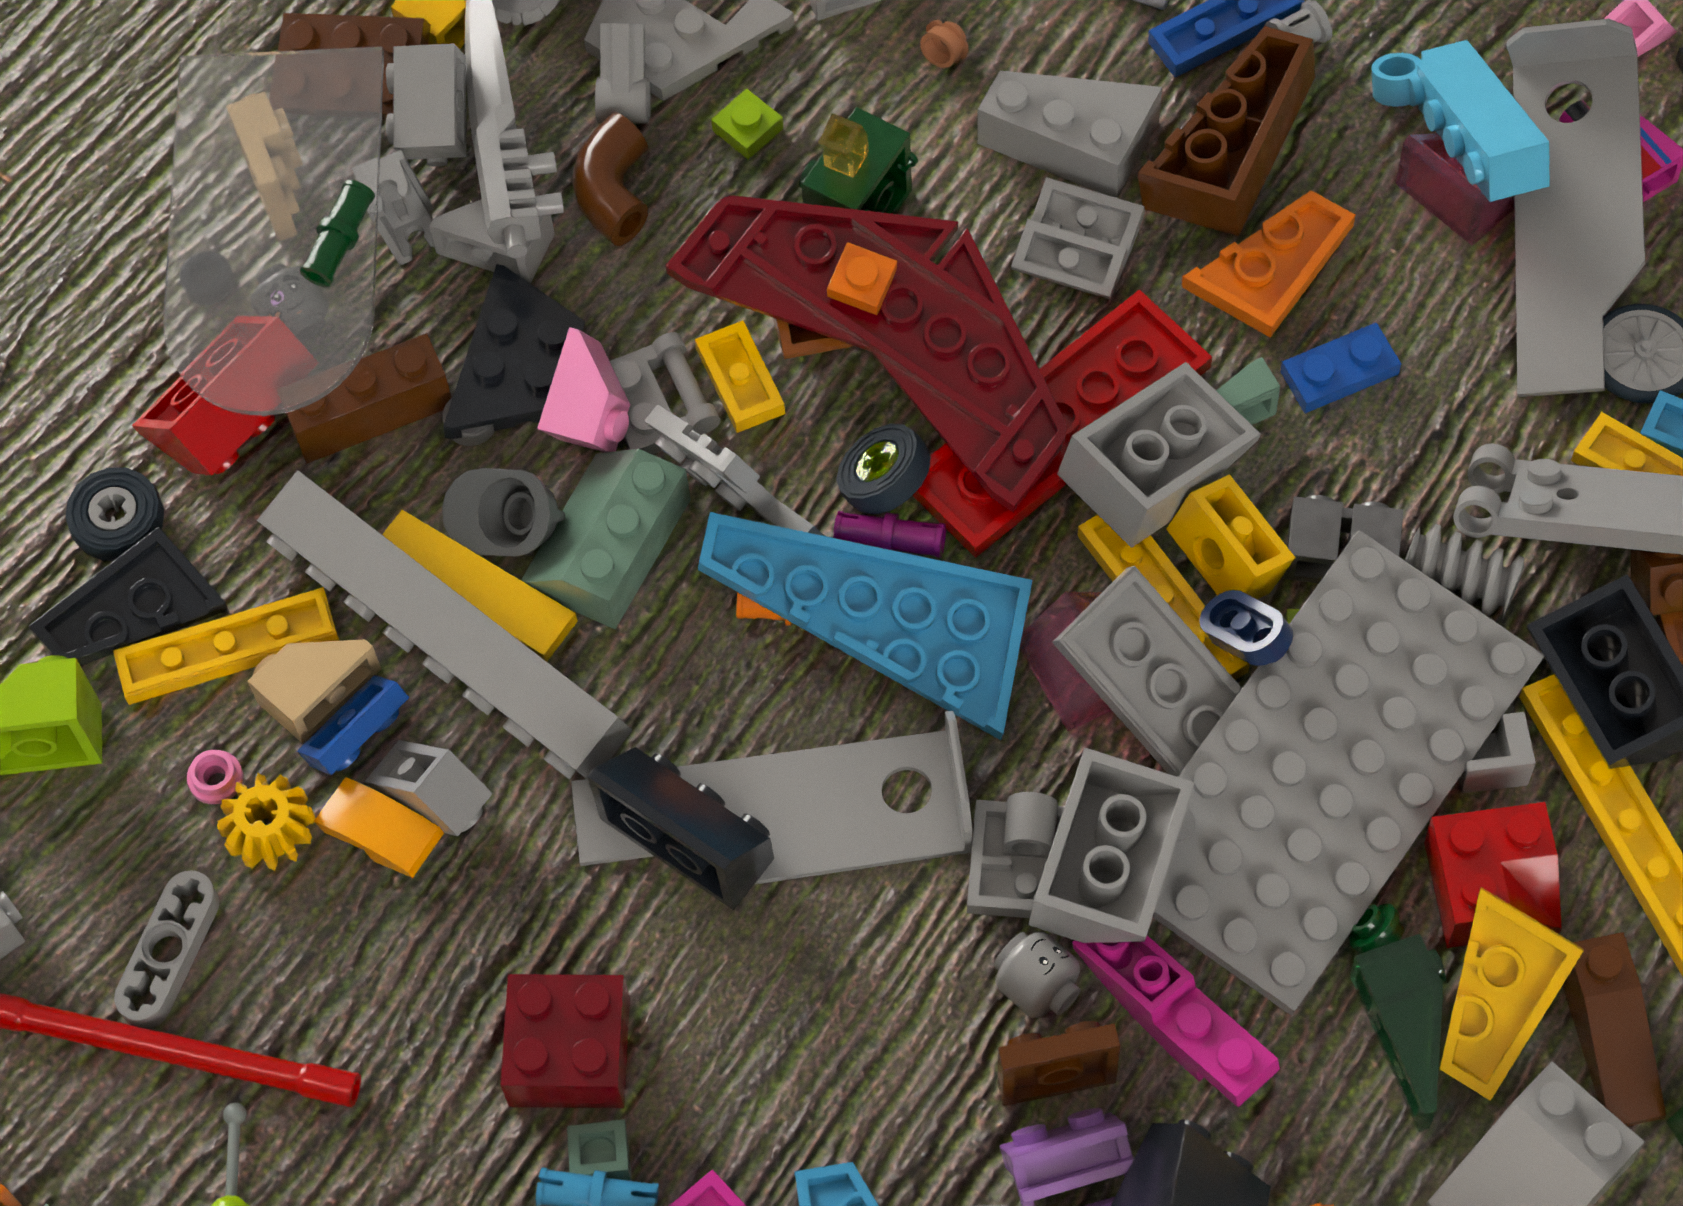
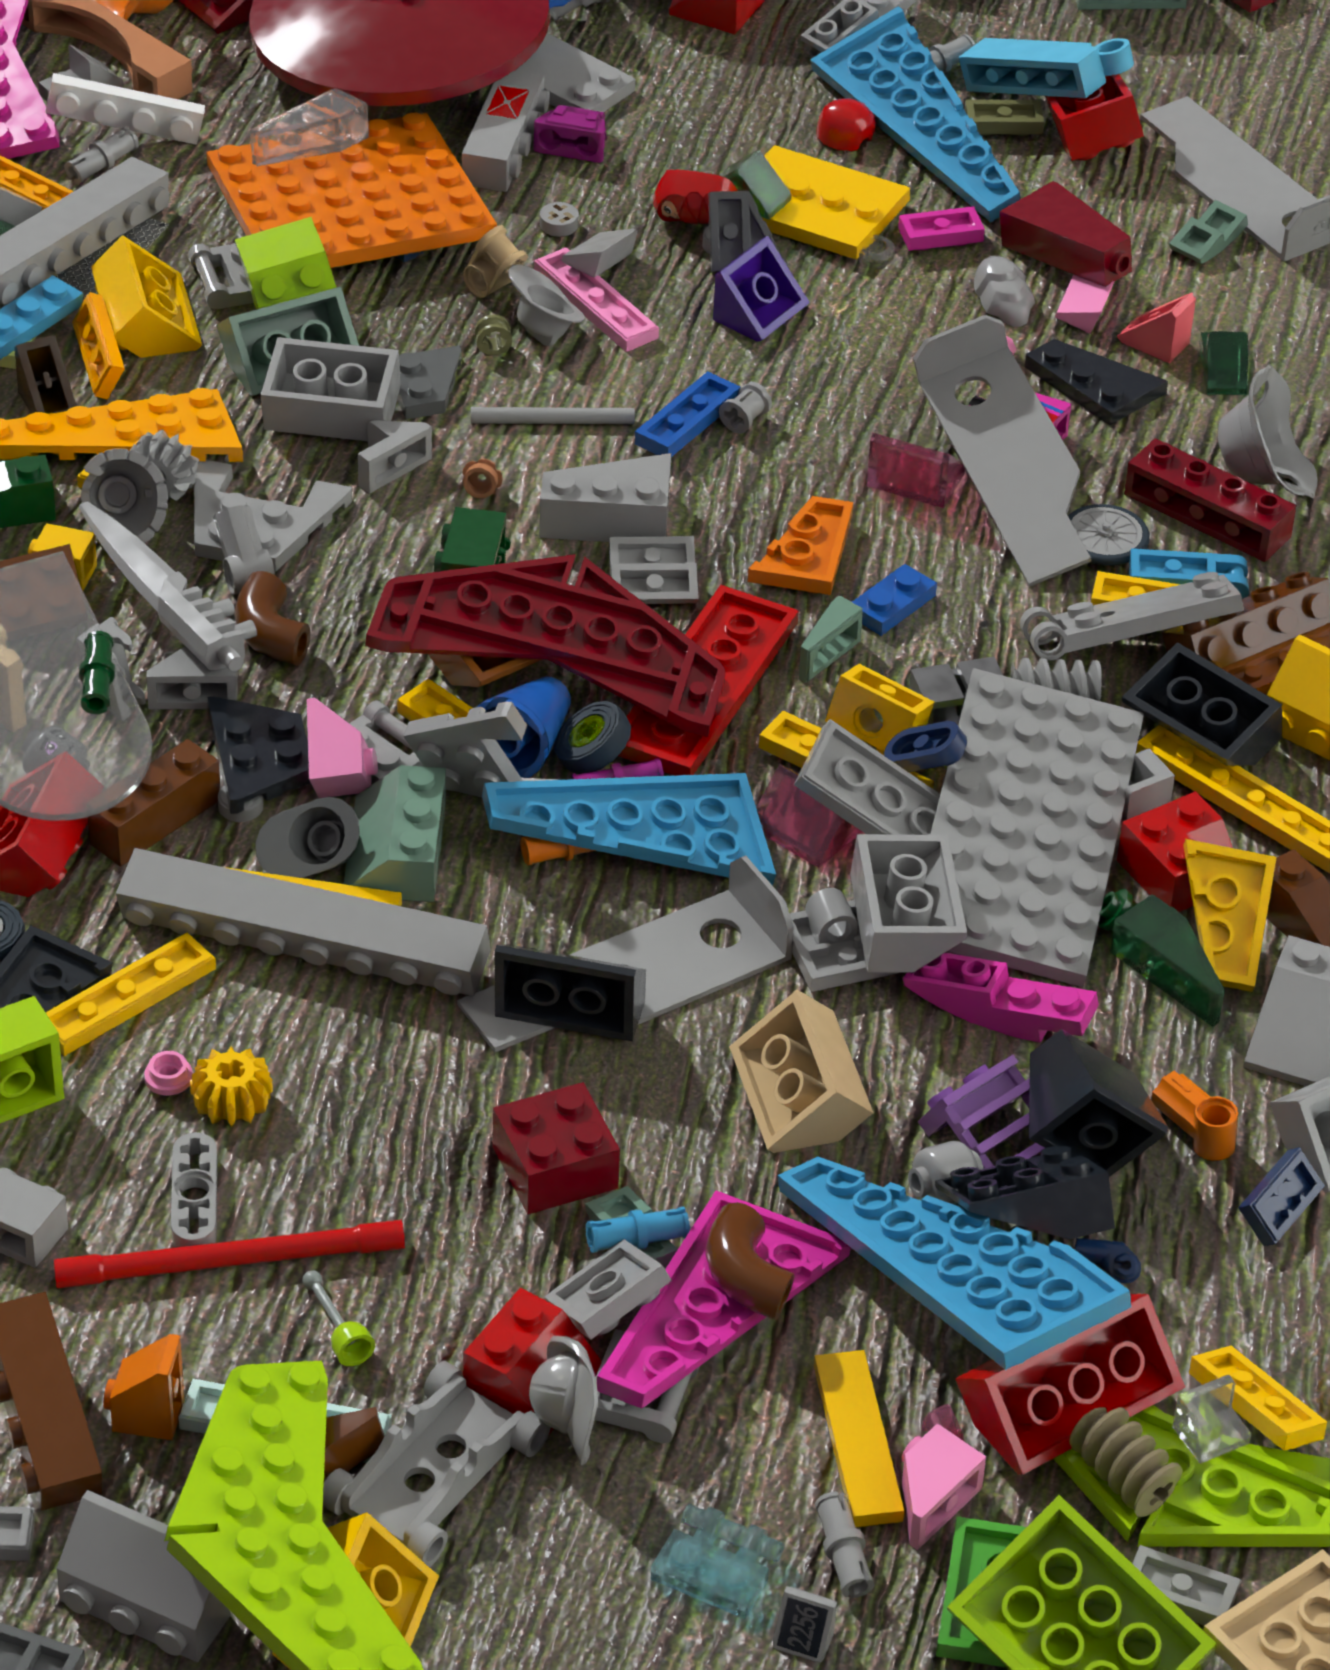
camera: 30 degrees left, 20 degrees down
(312, 681) = (214, 990): tan slope -> none
(366, 712) = (265, 1007): blue plate -> none
(379, 826) = (331, 1064): light orange slope -> none
(428, 102) = (109, 586): light grey brick -> none
(432, 785) = (352, 1026): light grey slope -> none
(747, 123) = (354, 566): lime plate -> none
(812, 424) = (543, 708): none -> blue cone
(843, 145) = (466, 522): clear yellow piece -> none
(862, 278) = (524, 604): orange plate -> none
(889, 1039) = (800, 1076): none -> tan slope
(1037, 974) = (889, 1004): light grey head -> none
(1058, 1064) = (939, 1043): reddish brown plate -> none
(1154, 452) = (795, 667): light grey slope -> none
(1231, 142) = (736, 483): reddish brown wedge -> none
(1471, 114) = (907, 413): medium azure hinge -> none

